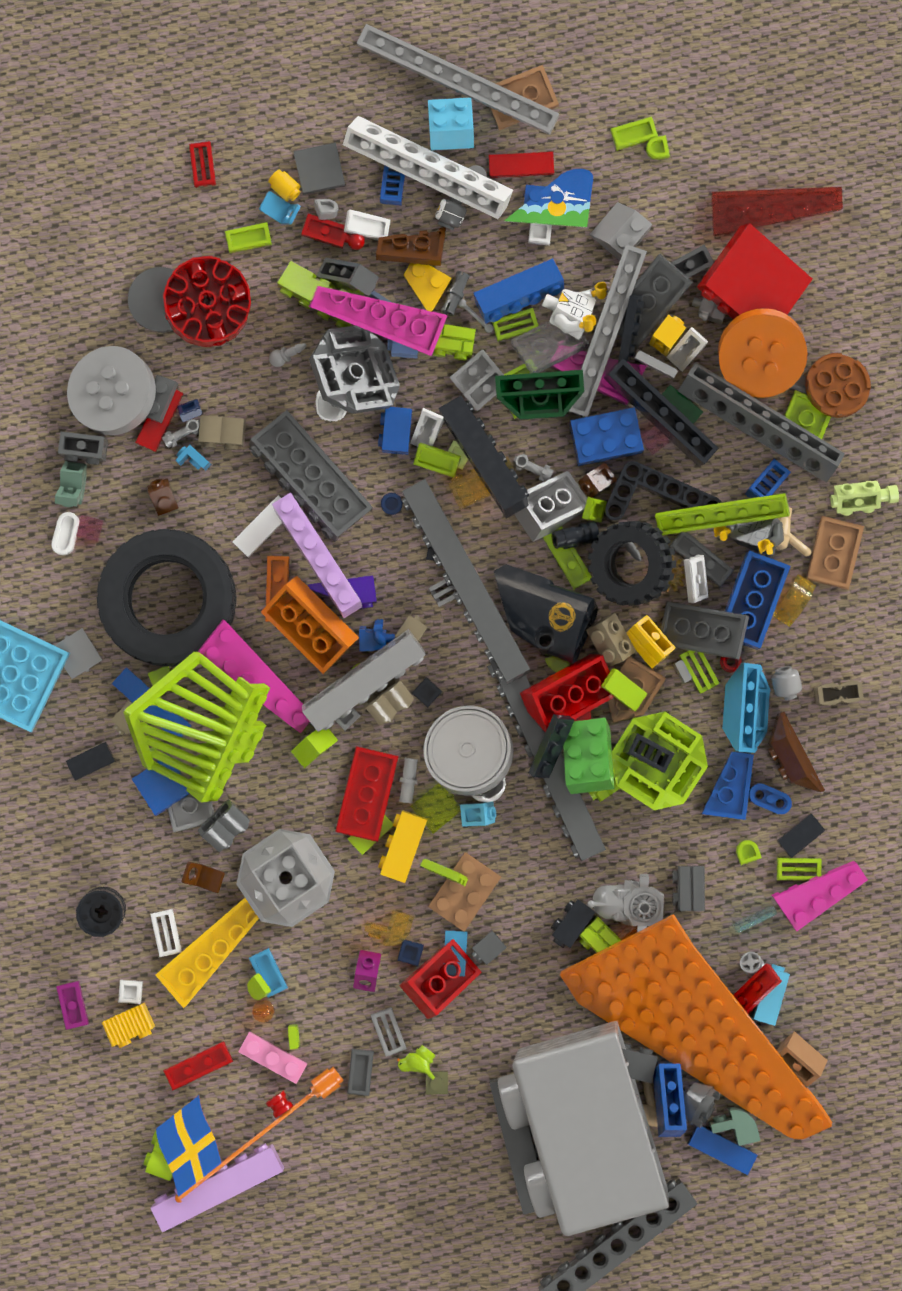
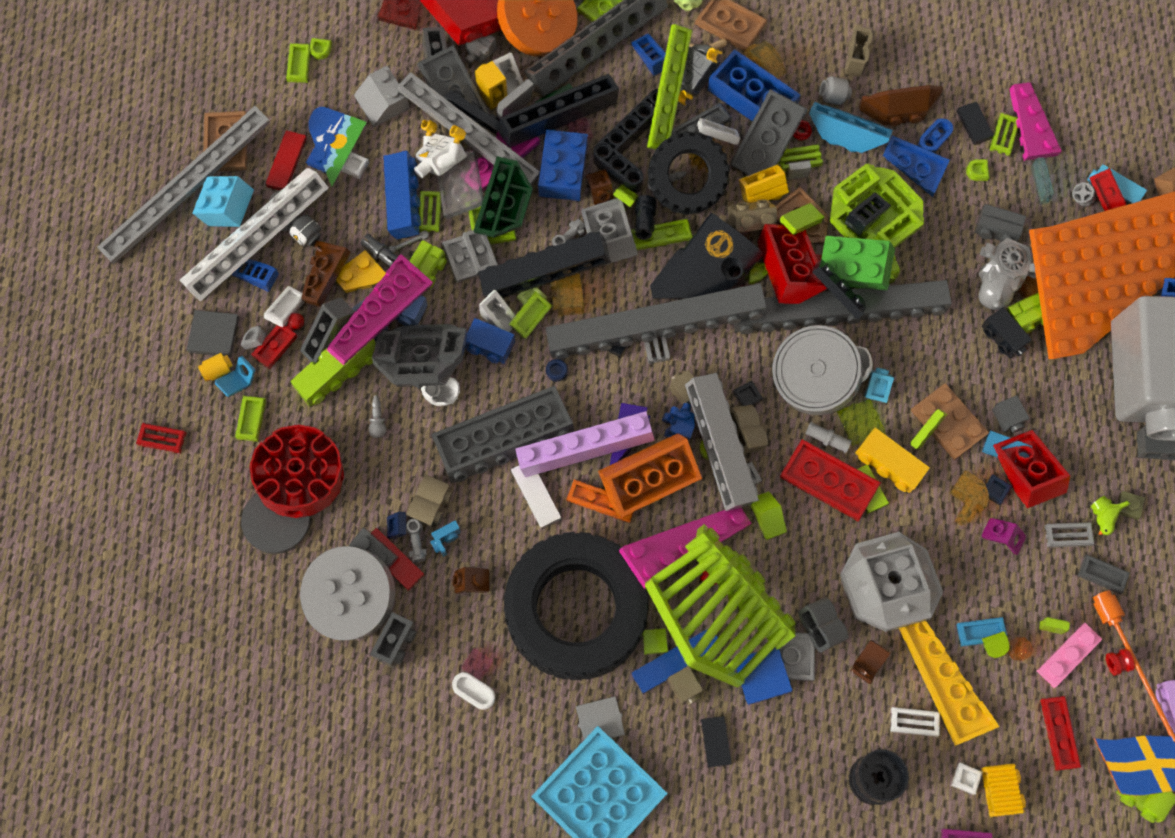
camera: 70 degrees left, 15 degrees down
(71, 484) = (426, 665): sand green brick -> none

